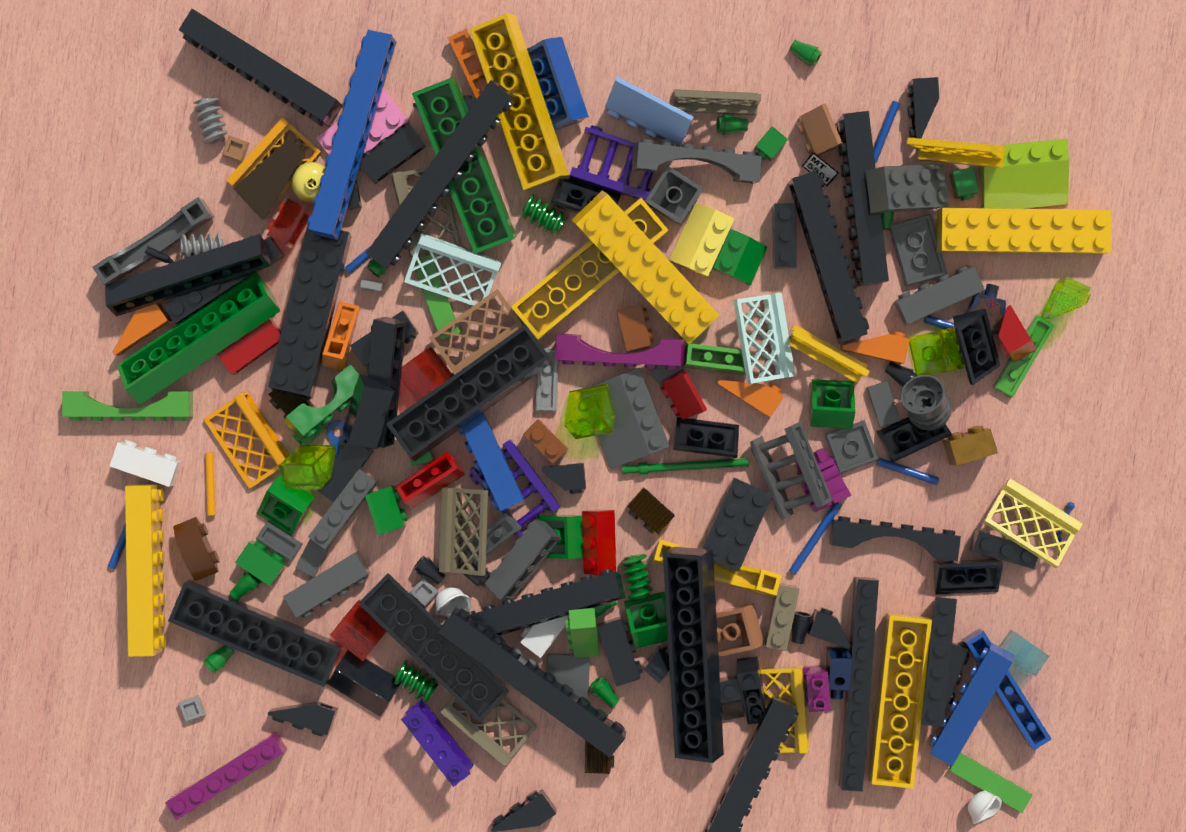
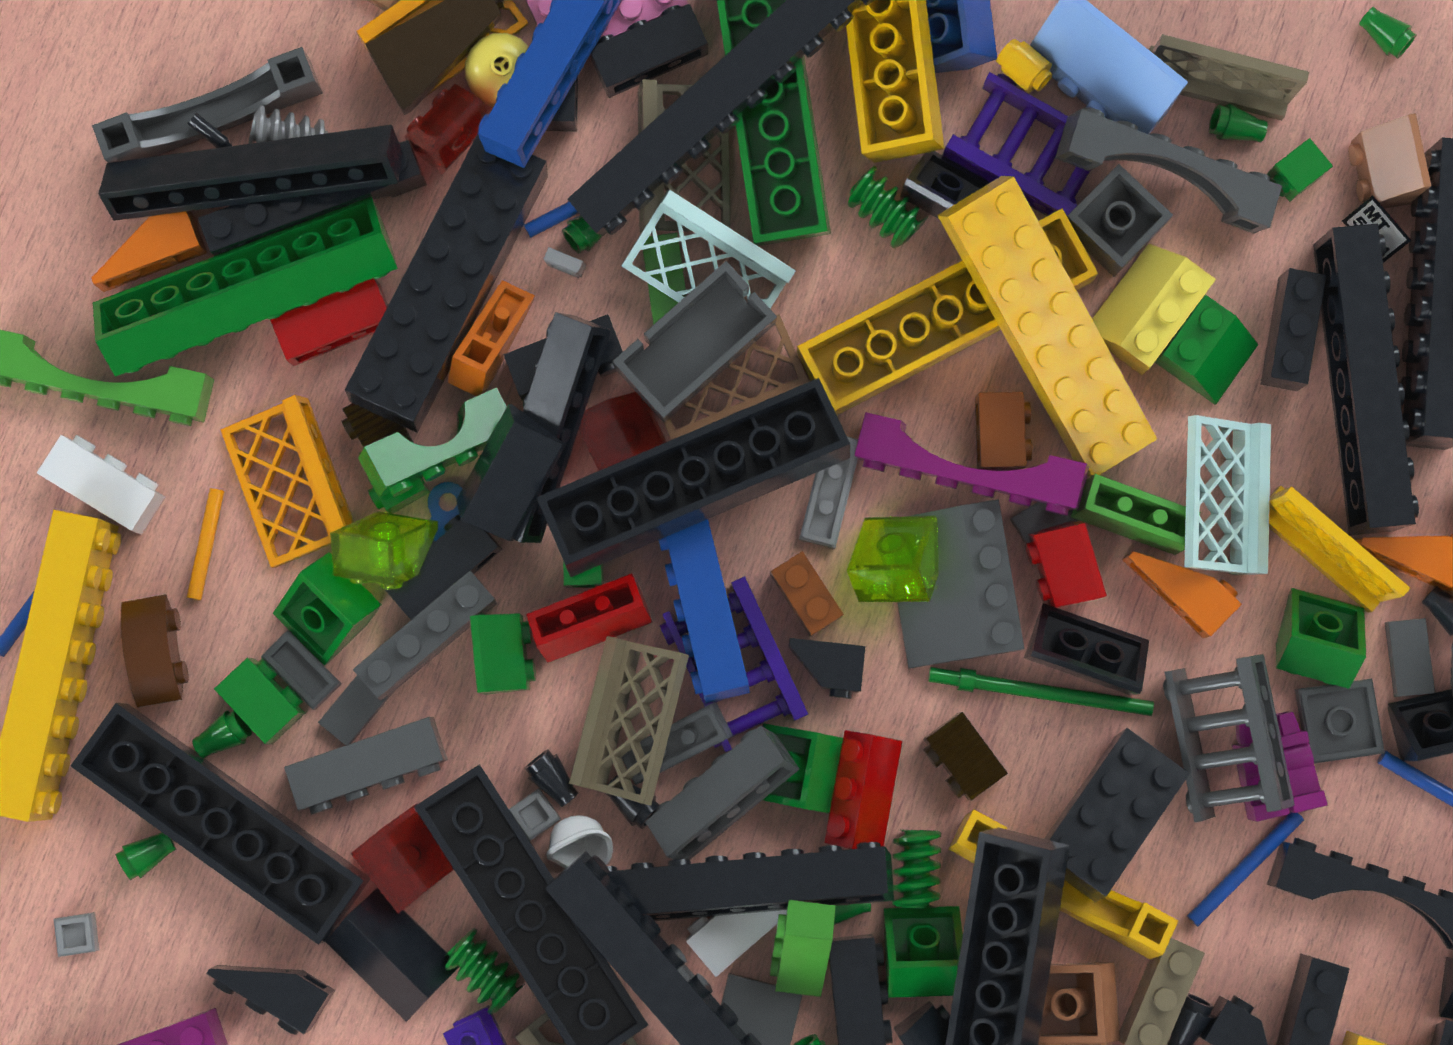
camera: 15 degrees right, 5 degrees down
(453, 317) = (695, 342): none -> dark grey piece
(604, 119) = (1025, 65): none -> yellow brick

